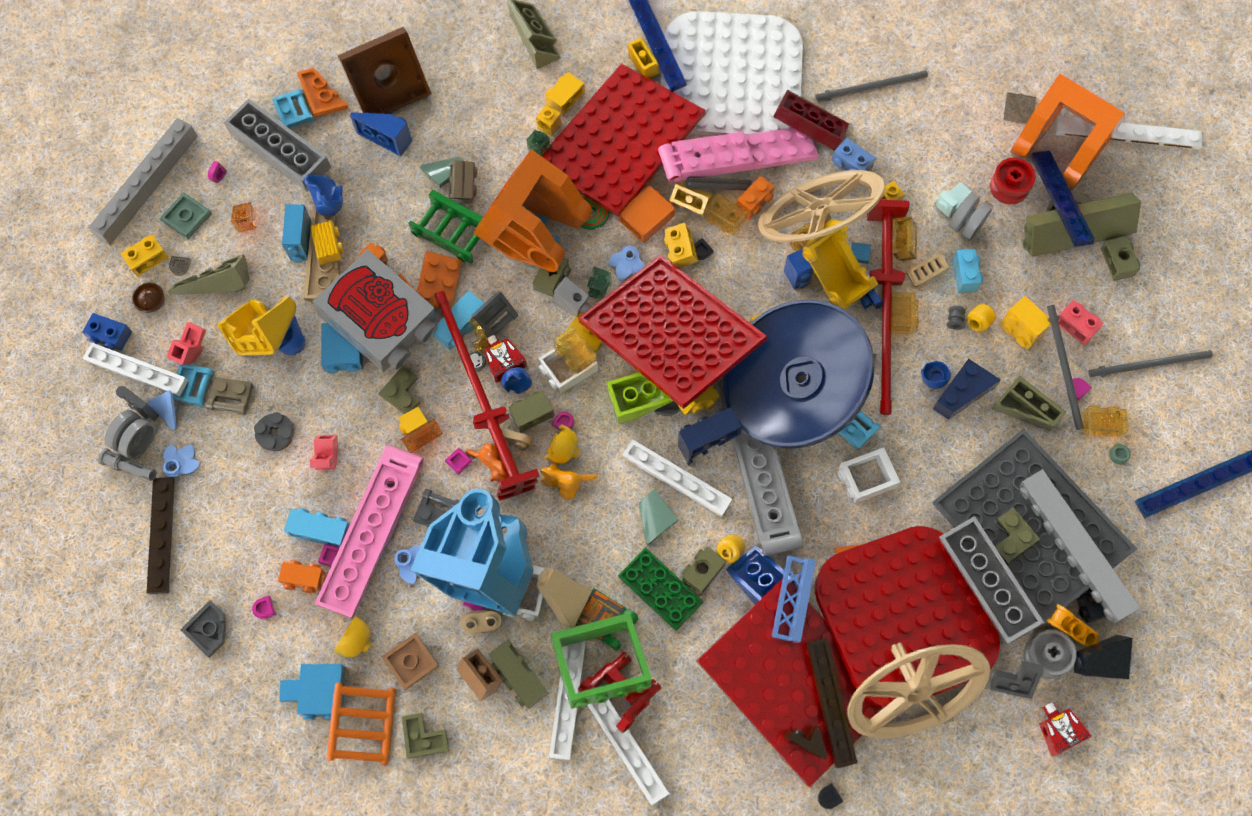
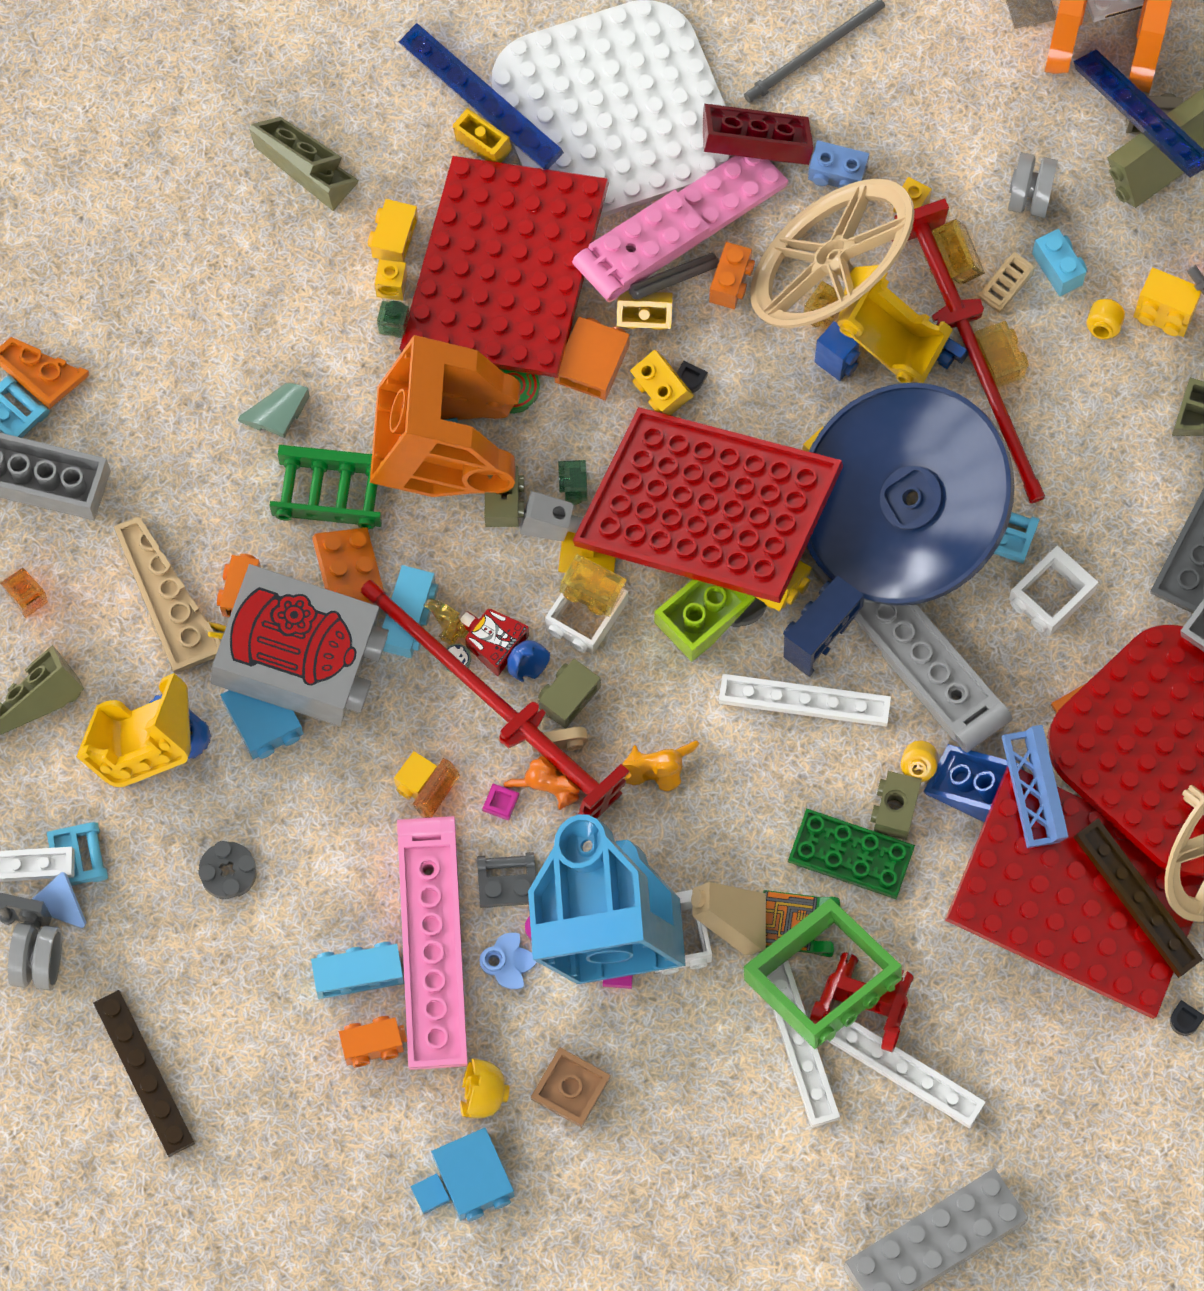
camera: 25 degrees left, 0 degrees up
(119, 462) = (35, 1001): light grey pin -> none
(181, 458) = (118, 961): light blue plate -> none
(189, 347) = (46, 803): coral brick -> none
(207, 628) = (276, 1165): dark grey plate -> none
(231, 390) = (137, 839): dark tan plate -> none
(263, 608) = (337, 1106): dark pink tile -> none
(296, 232) = (119, 583): dark azure brick -> none
(325, 194) = (134, 514): blue piece -> none
(325, 452) = (315, 866): coral brick -> none
(326, 242) = (168, 579): yellow brick -> none
(328, 555) = (391, 999): dark pink tile -> none
(338, 711) = (524, 1214): orange bar -> none
(383, 130) = (166, 388): blue slope -> none
(385, 73) = (132, 307): reddish brown piece -> none
(396, 391) = (369, 748): olive plate -> none
(420, 743) = (633, 1182): olive plate -> none
(462, 180) = (314, 414): dark tan brick -> none
(479, 674) = (672, 1062): medium nougat brick -> none
(480, 619) = (638, 994): tan plate -> none
(491, 311) = (449, 580): dark grey plate -> none
(517, 674) = (721, 1041): olive wedge -> none
(563, 418) = (617, 690): dark pink tile -> none
(563, 446) = (634, 721): yellow cylinder -> none
(626, 265) = (596, 441): light blue plate -> none
(655, 516) = (800, 762): sand green slope -> none
(725, 215) = (701, 315): clear yellow brick -> none
(812, 744) = (1137, 959): dark brown slope -> none
(861, 252) = (908, 292): dark azure tile -> none
(935, 374) = (1080, 420): blue hair -> none
(950, 201) = (998, 169): light aqua bracket -> none
(956, 317) = (1073, 332): dark grey bush -> none
(966, 387) = (1126, 423): dark blue wedge -> none
(1012, 181) = (1065, 112): red wheel -> none

